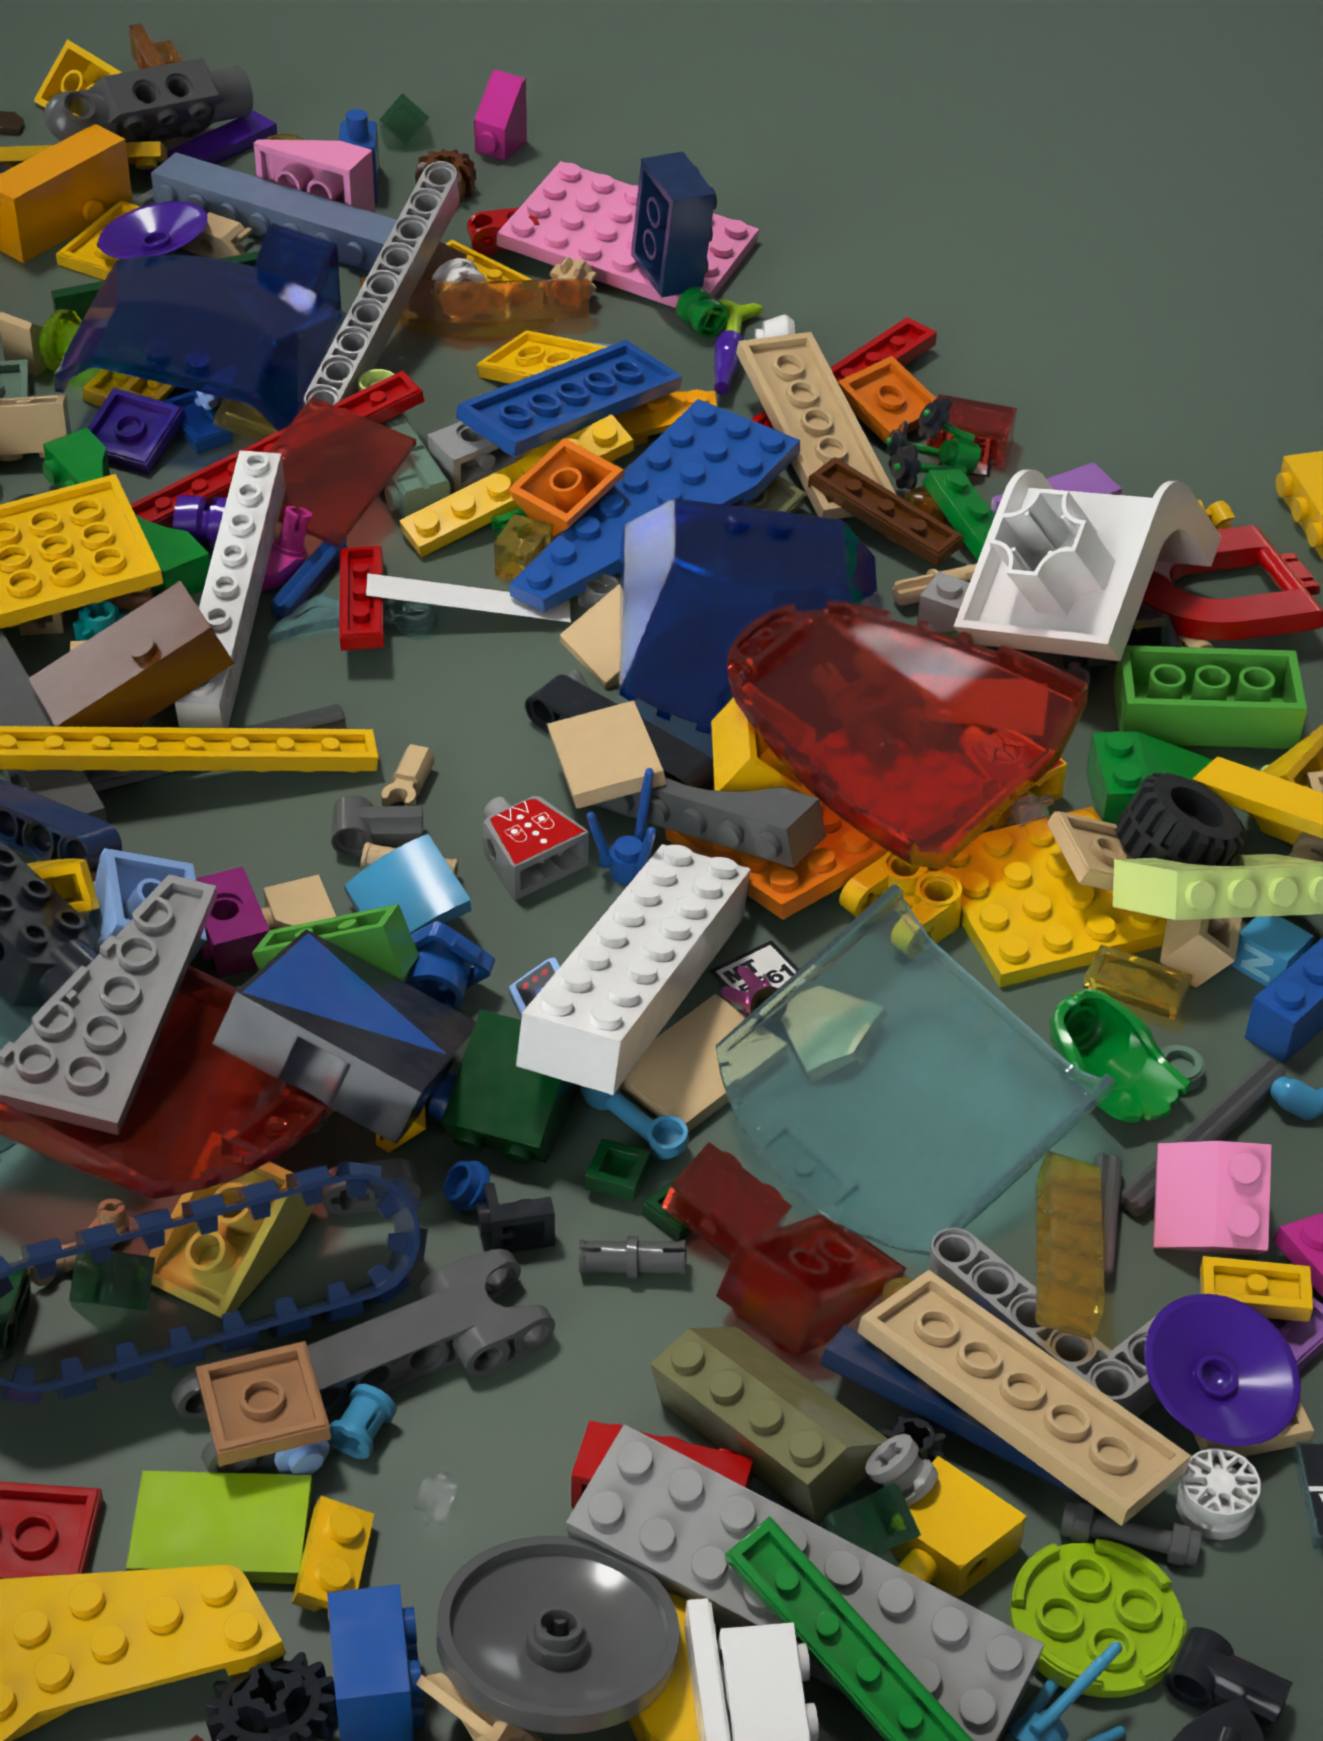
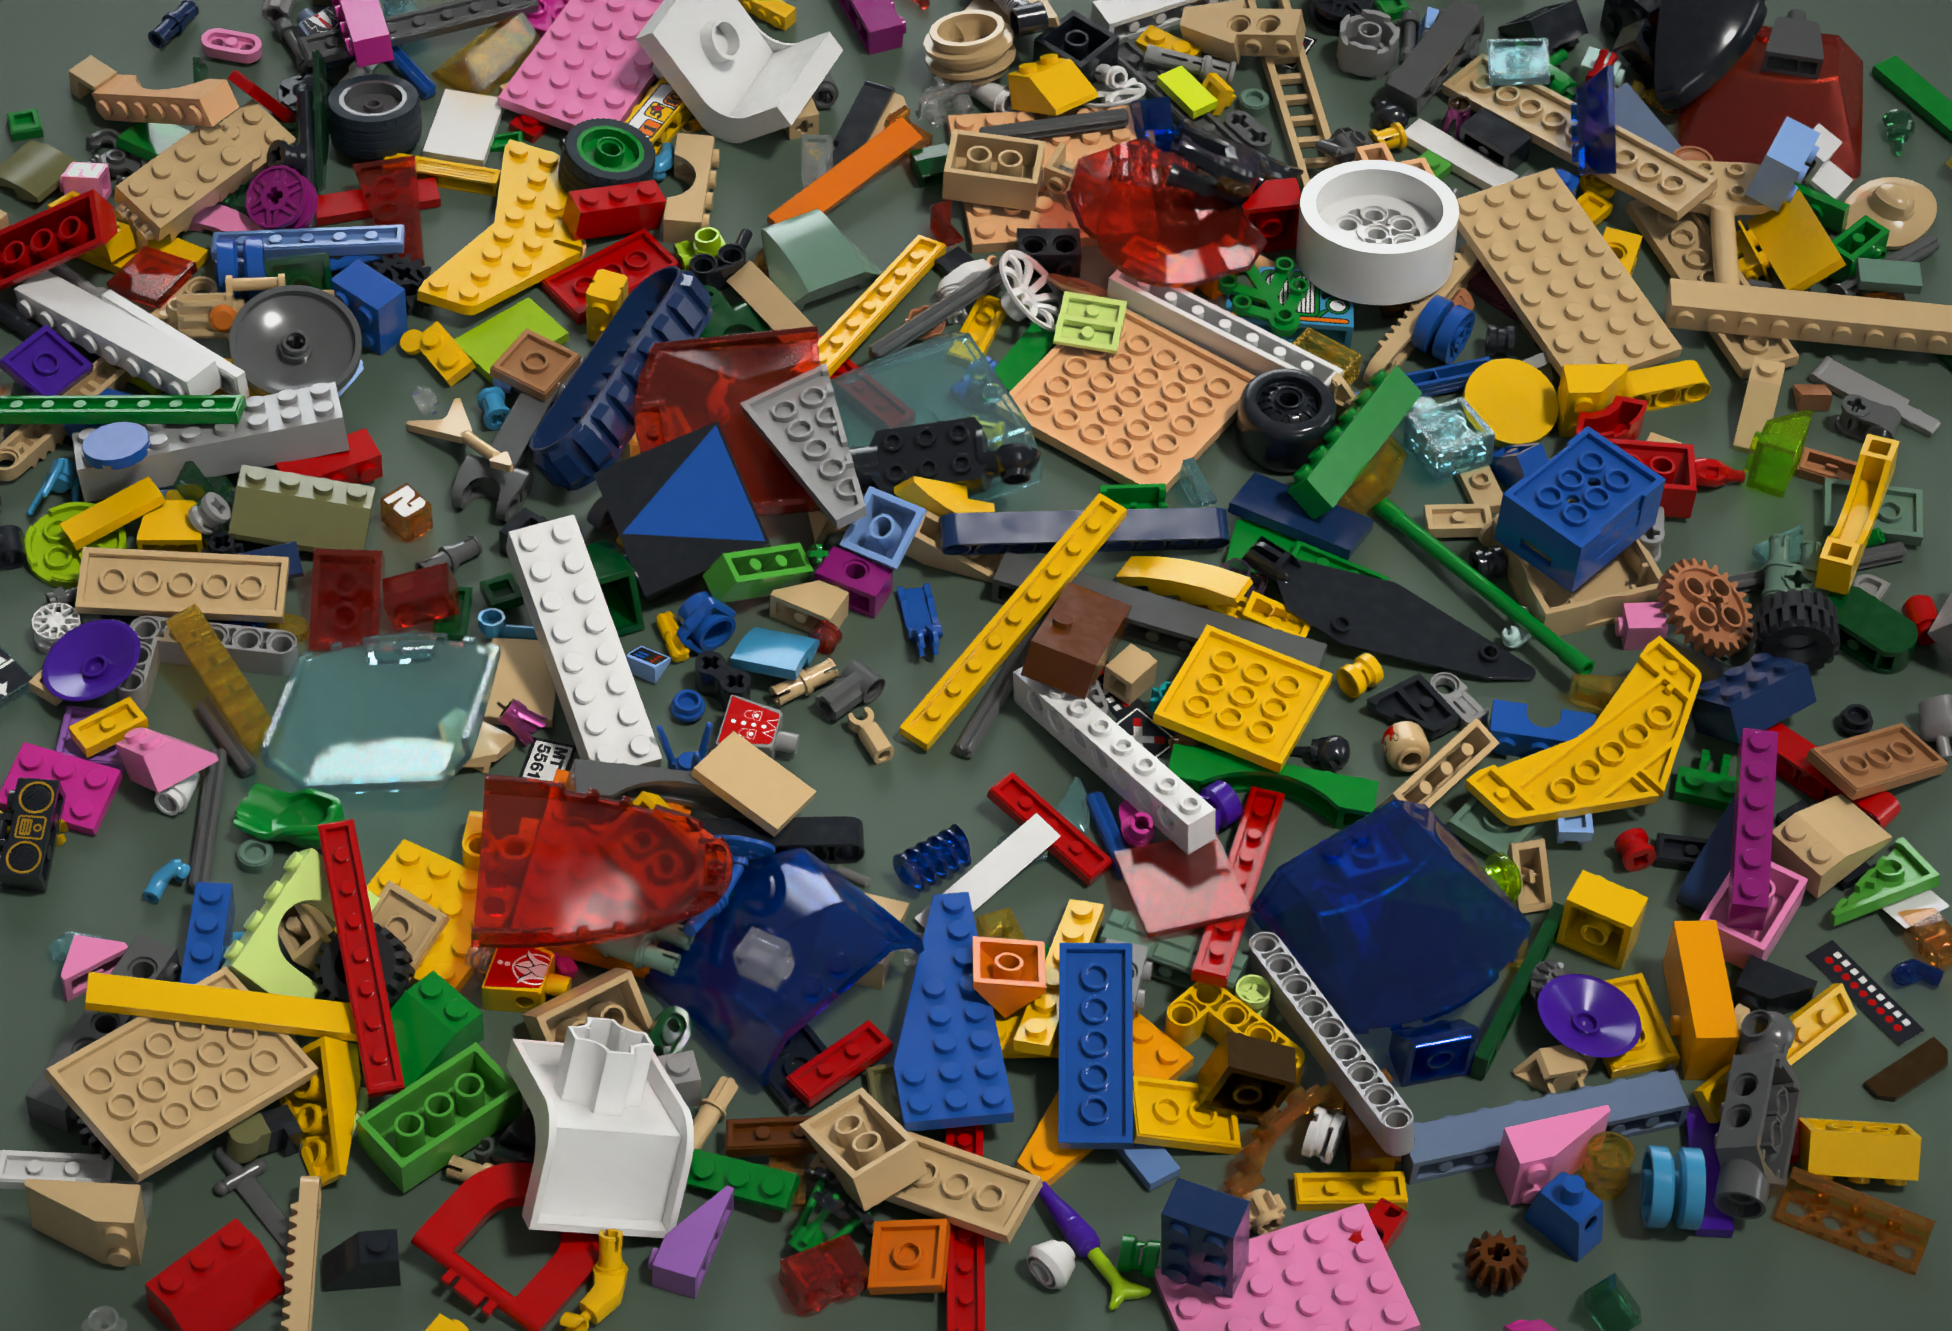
camera: 135 degrees right, 5 degrees up
(36, 264) = (1601, 919): none -> yellow brick
(74, 1427) = (604, 300): none -> yellow brick
(214, 849) = (920, 617): none -> blue arm
(239, 956) = (815, 553): none -> green axle
(265, 109) = (1672, 1187): none -> dark azure wheel
(336, 888) = (828, 634): none -> clear red bush
(420, 364) = (1215, 1011): none -> yellow beam
(446, 1419) = (456, 428): none -> tan piece
(477, 323) = (1246, 1076): none -> dark brown brick
(487, 994) = (668, 627): none -> yellow piece
(495, 910) = (719, 680): none -> black axle
(499, 634) = (933, 858): none -> clear blue piece
(554, 920) = (688, 706): none -> blue plate
(626, 1344) = (406, 513): none -> clear orange brick
(691, 702) = (742, 851): none -> blue dish
(804, 554) = (764, 958): none -> clear brick
(858, 434) = (865, 1148): none -> tan slope
(970, 1610) = (116, 445): none -> tile
(1029, 1578) = (112, 513): none -> yellow tile
(1193, 795) = (361, 958): none -> red tile

